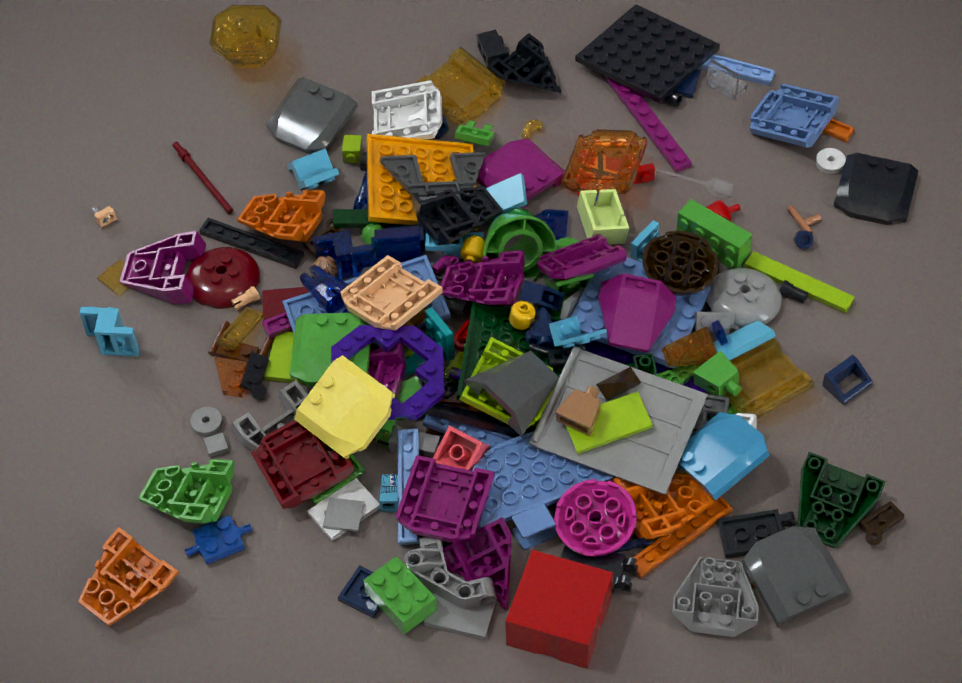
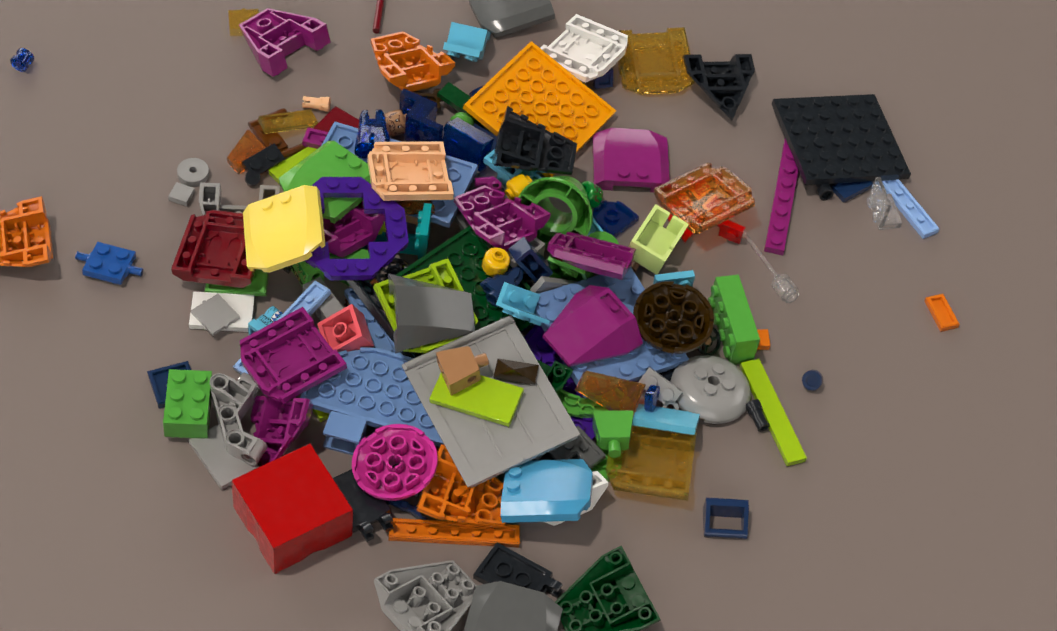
camera: 30 degrees right, 0 degrees up
(110, 333) = (189, 53): medium azure bracket -> none
(192, 492) = (123, 214): bright green wedge -> none
(217, 289) = (318, 74): dark red brick -> none
(251, 243) = (367, 66): black tile -> none
(352, 148) = (514, 46): lime brick -> none
(408, 174) = (530, 92): dark grey wing -> none
(468, 133) = (623, 104): bright green plate -> none
(491, 46) = (714, 45): black brick -> none
(509, 193) = (594, 166): medium azure tile -> none
(530, 126) = (679, 129): clear yellow arm -> none
(551, 353) = (493, 310): black piece -> none
(721, 209) = (764, 307): red piece -> none
(793, 115) = (913, 275): medium blue wedge -> none
(804, 224) = (829, 369): nougat piece -> none
(830, 161) = (909, 328): white piece -> none
(876, 189) = (924, 387): black wedge -> none

